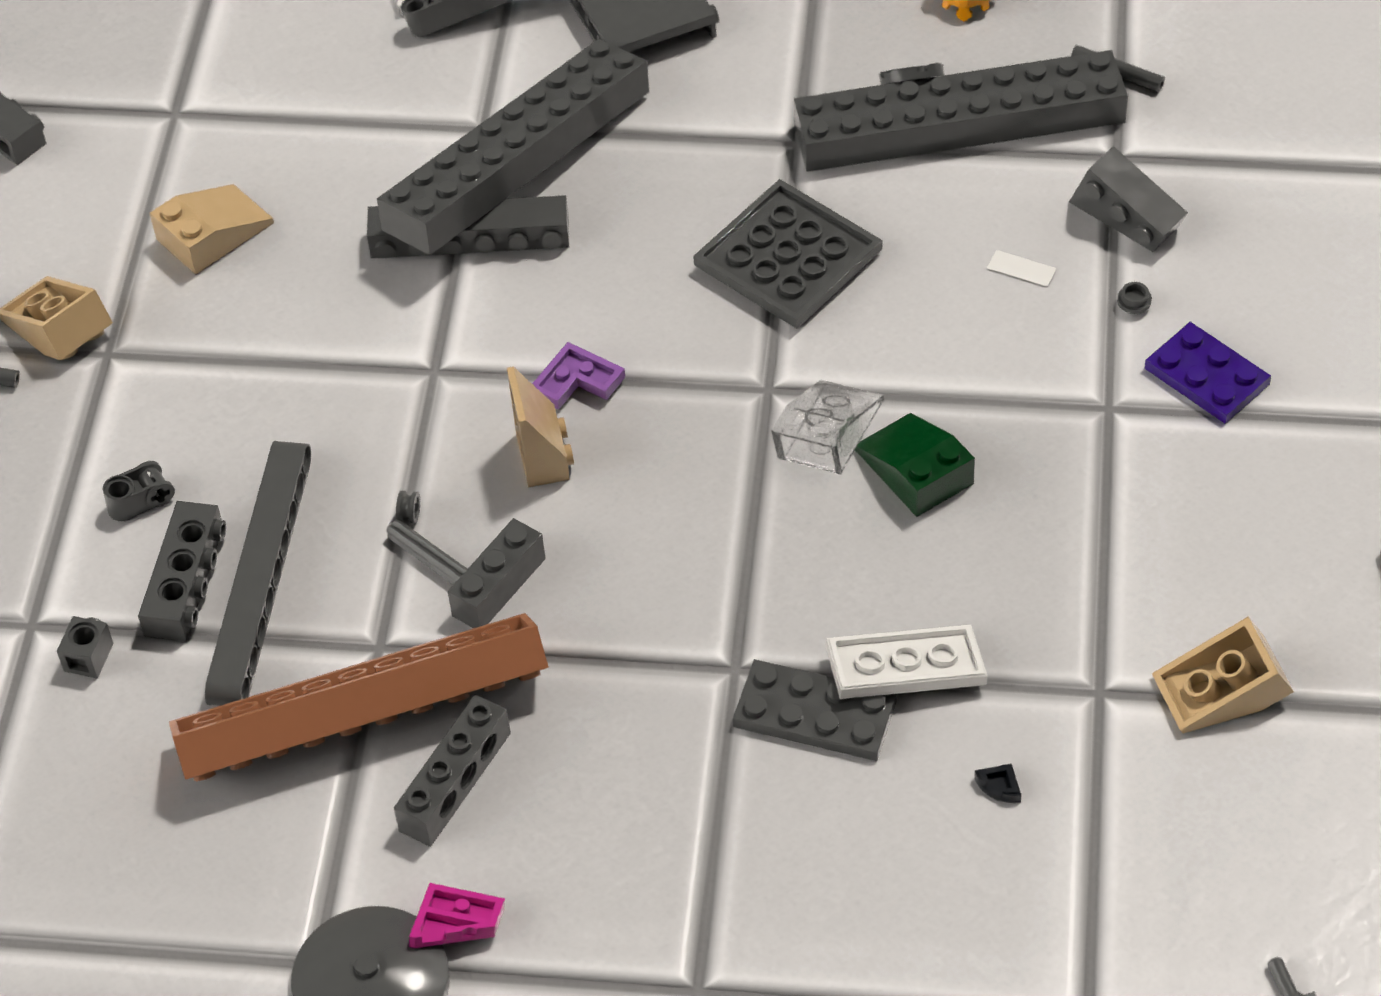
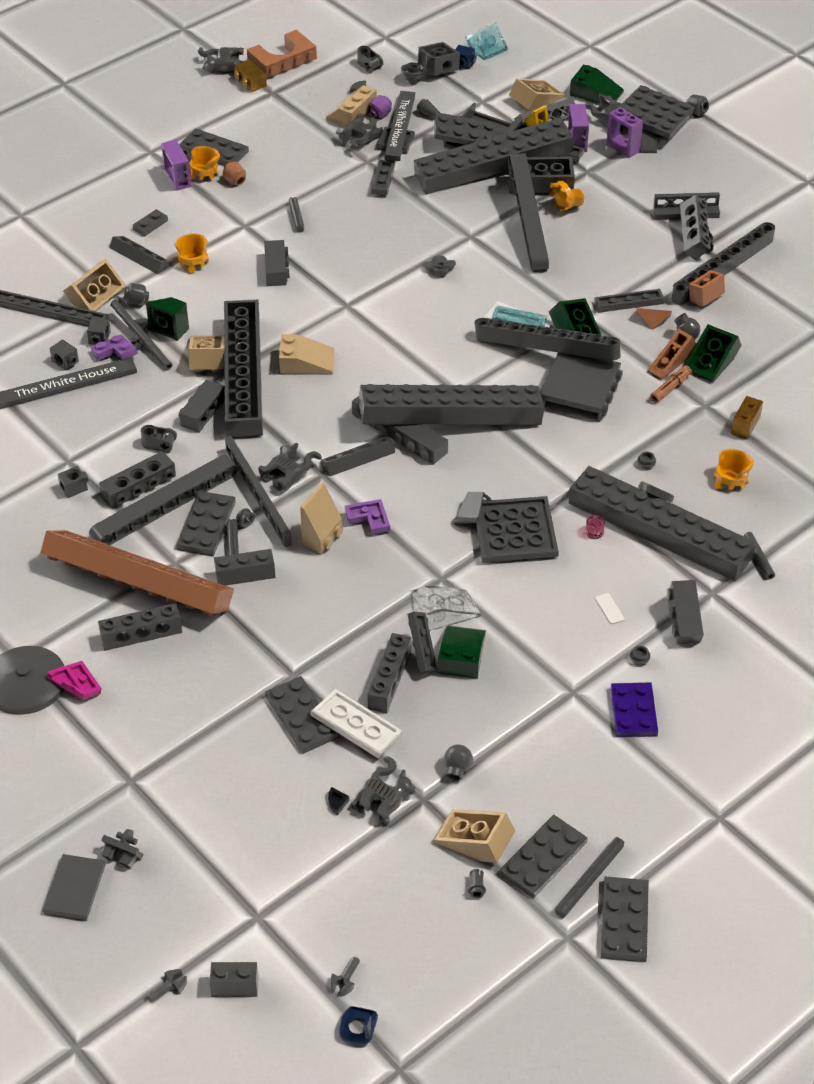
camera: 40 degrees right, 5 degrees down
(144, 398) = (202, 405): none -> dark grey brick
(146, 300) = (242, 368): none -> dark grey brick
(356, 557) = (206, 523): none -> dark grey plate
(381, 395) = (286, 467): none -> dark grey animal
(383, 457) = (258, 492): none -> dark grey tile
(454, 308) = (358, 456): none -> dark grey slope
(702, 267) = (471, 508): none -> piece
(840, 43) = (647, 459): none -> dark grey plate
(867, 562) = (389, 673): none -> dark grey brick
(868, 487) = (422, 642): none -> dark grey plate
(884, 176) = (595, 527): none -> clear pink wheel
(1048, 726) = (382, 794): none -> dark grey animal
(1091, 605) = (457, 761): none -> dark grey piece
(1298, 739) = (476, 886): none -> dark grey pin
(1327, 640) = (543, 856): none -> dark grey plate

